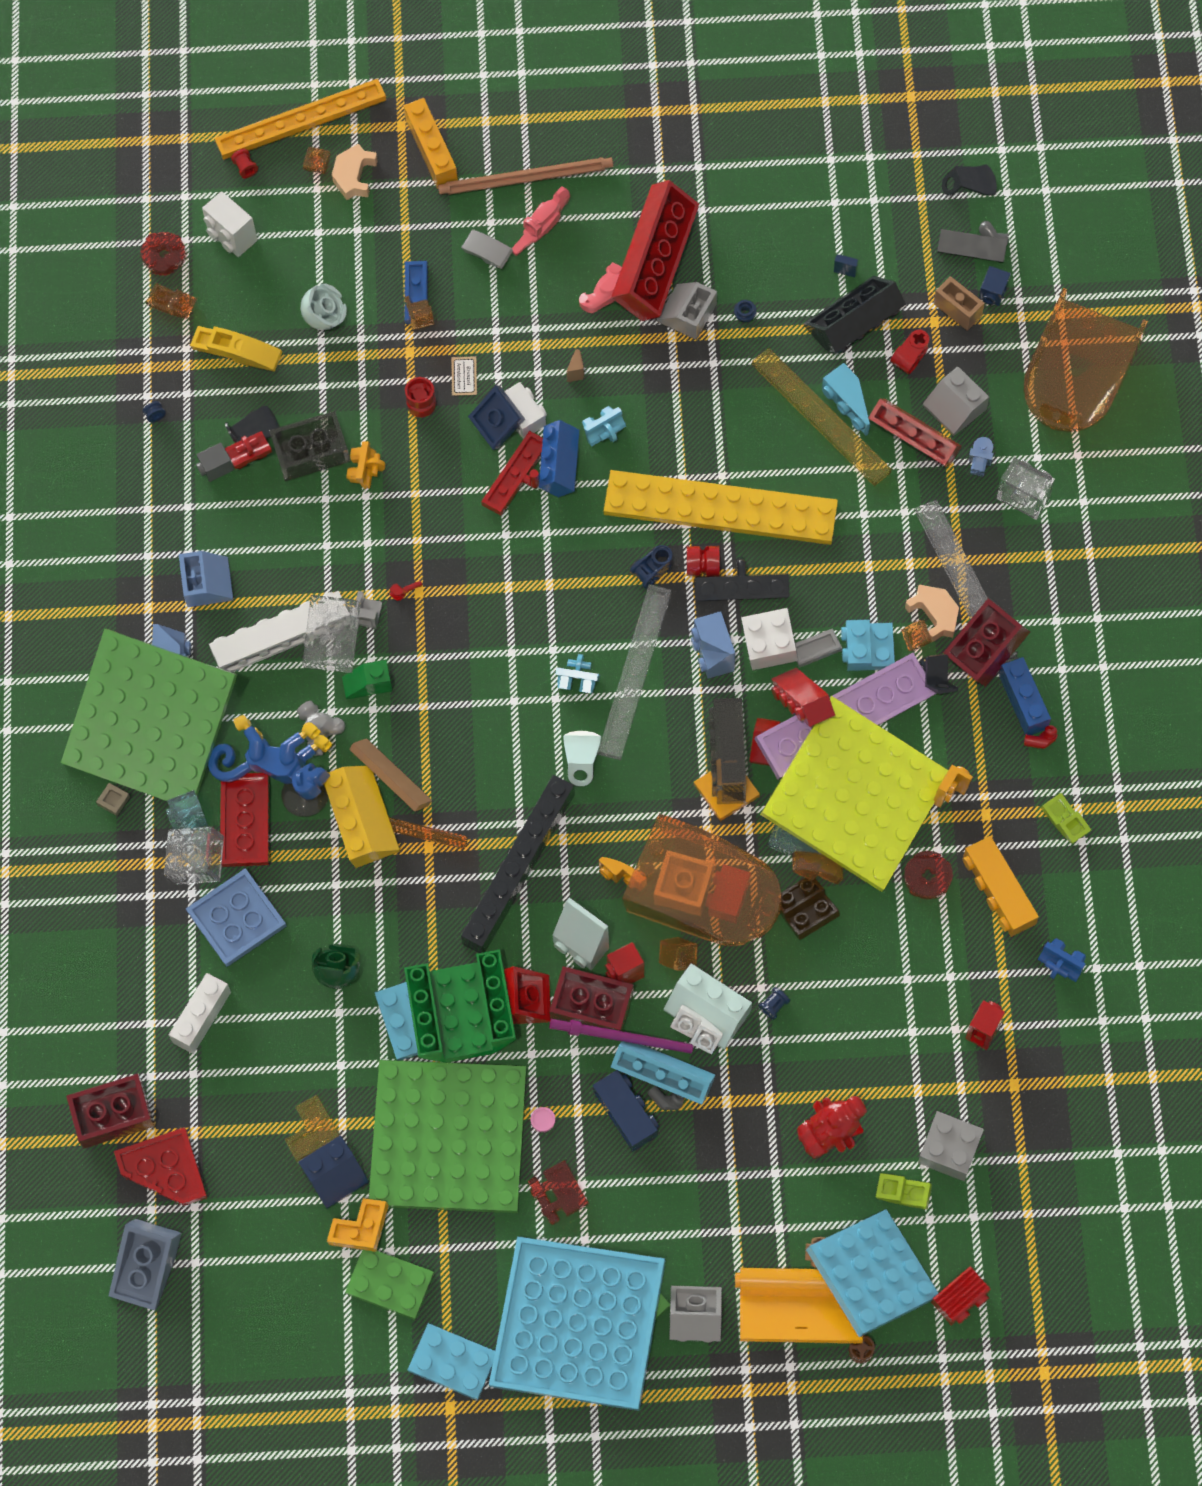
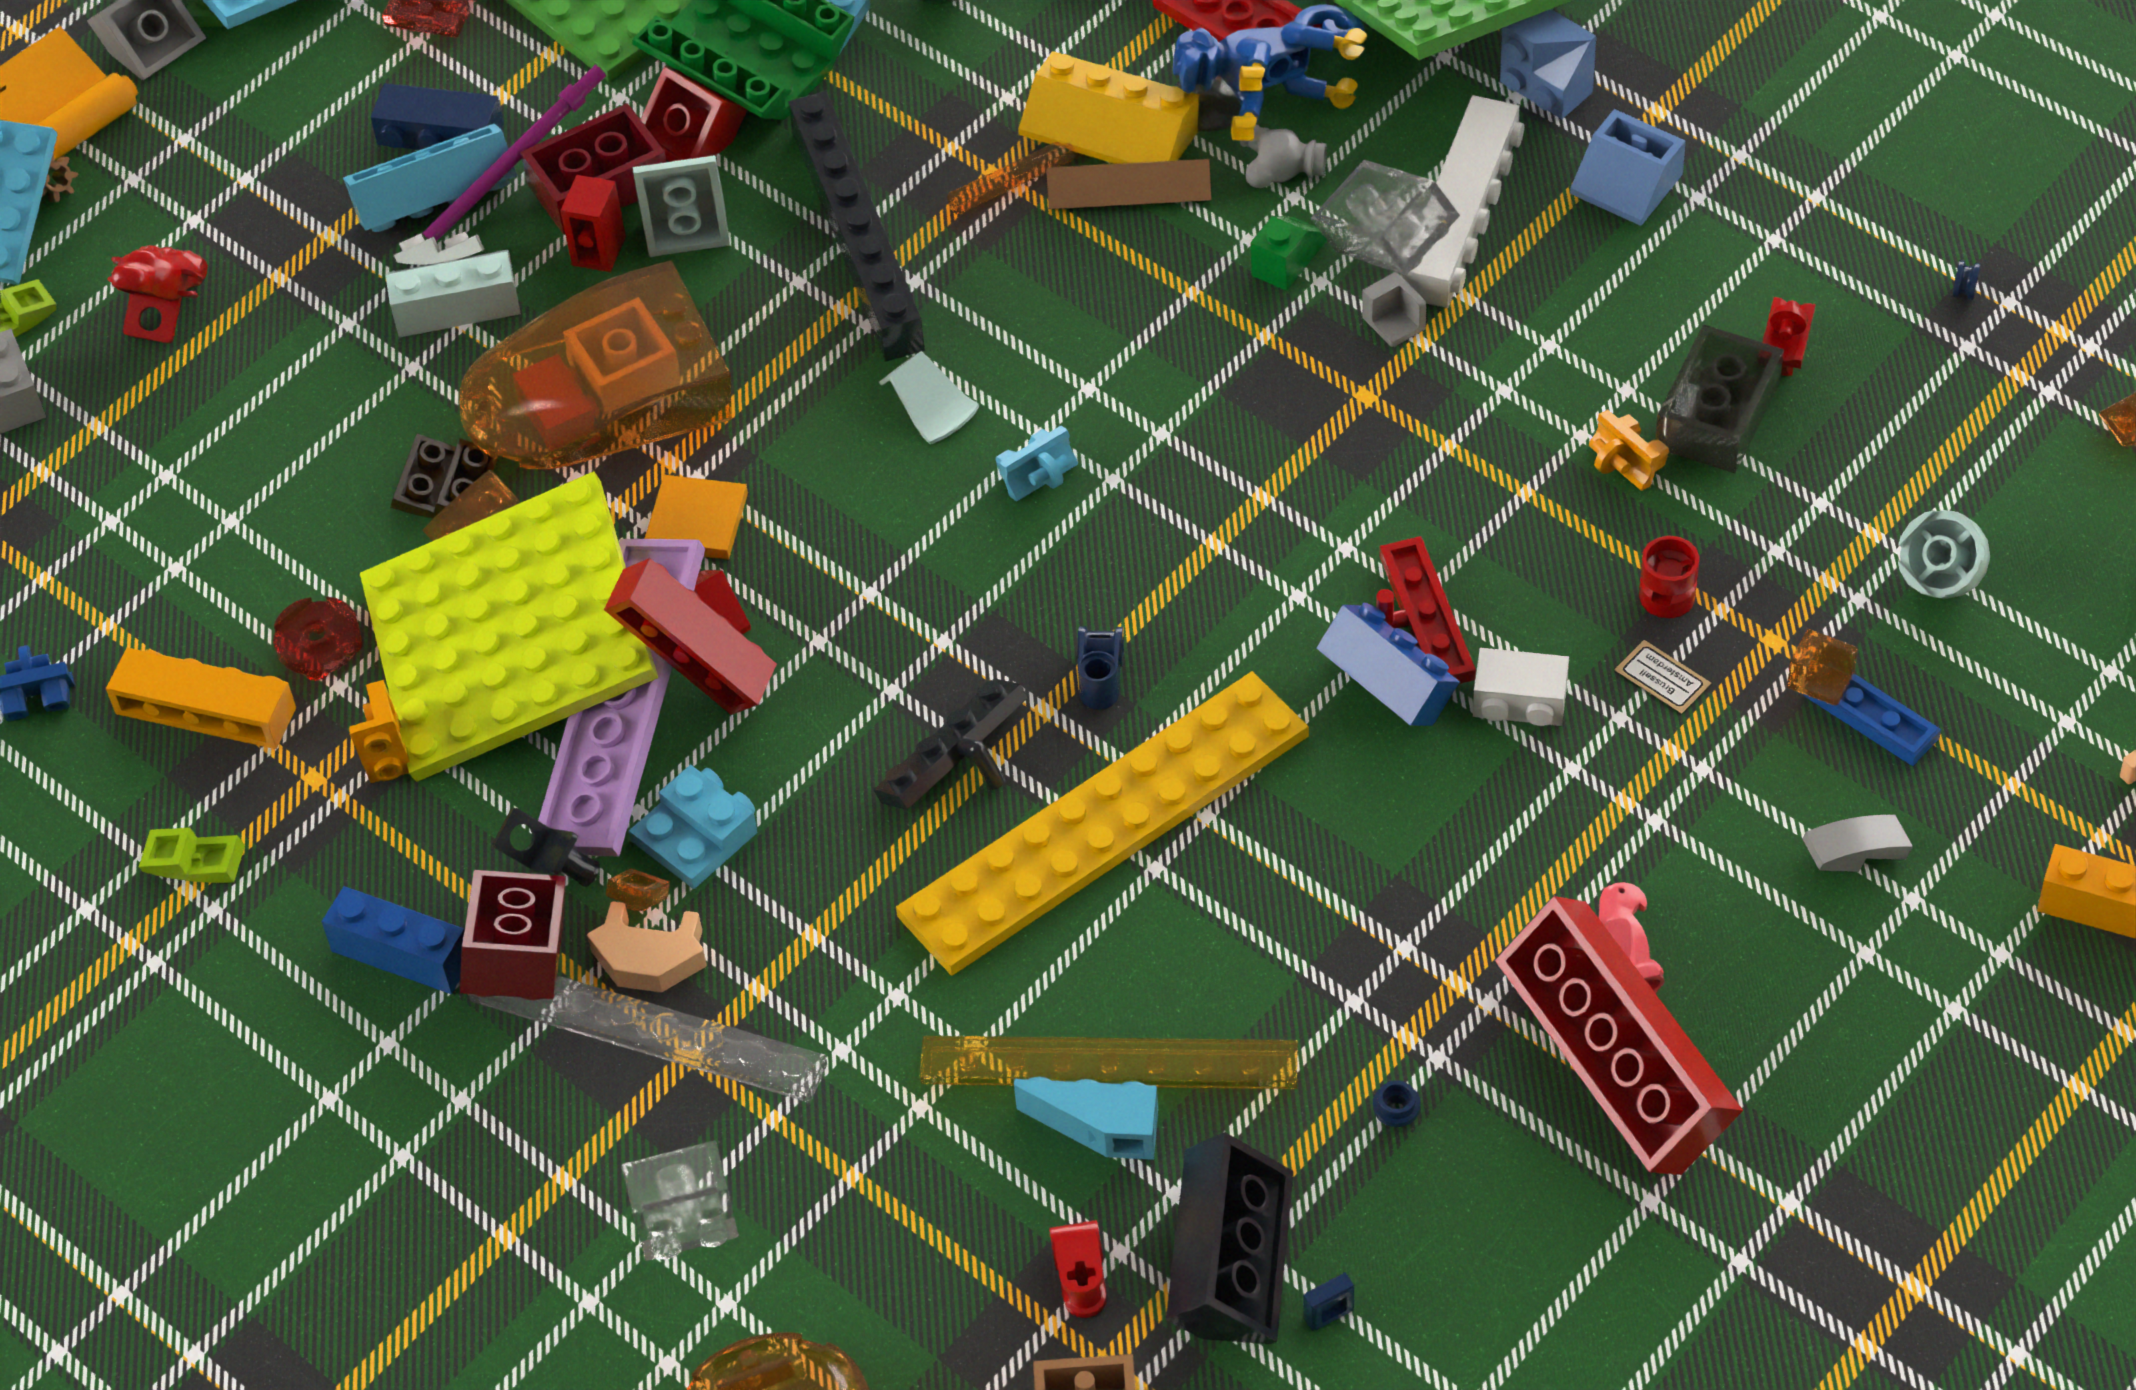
camera: 135 degrees right, 15 degrees down
(214, 462) = (1811, 283): dark grey brick -> none
(237, 347) = (1973, 421): yellow slope -> none
(259, 420) = (1827, 374): black piece -> none
(399, 593) = (1386, 364): red hand -> none
(496, 417) = (1536, 638): dark blue tile -> none
(525, 176) = (1951, 1000): nougat piece -> none
(542, 220) = (1840, 950): coral animal -> none
(543, 1119) = (531, 54): bright pink piece -> none
(575, 369) = (1525, 805): medium nougat slope -> none
(604, 427) = (1381, 764): medium azure hips -> none
(615, 870) = (732, 315): light orange slope -> none
(634, 672) = (973, 535): clear plate -> none
(677, 953) = (541, 295): clear orange panel -> none
(688, 308) = (1472, 1016): light grey slope -> none
(703, 561) = (1038, 719): red wheel -> none
(713, 644) = (897, 628): medium blue slope -> none
(727, 751) = (715, 506): clear smoke brick -> none
(769, 639) = (833, 705): white brick -> none
(774, 1003) = (372, 355): dark blue bush -> none
(817, 647) = (768, 767): light grey tile -> none
(915, 432) = (937, 1141): red brick -> none
(956, 401) = (929, 1260): light grey slope -> none
(981, 455) = (796, 1186): medium blue hips -> none
(985, 1024) = (61, 520): red brick -> none
(1043, 740) = (313, 931): red arm -> none

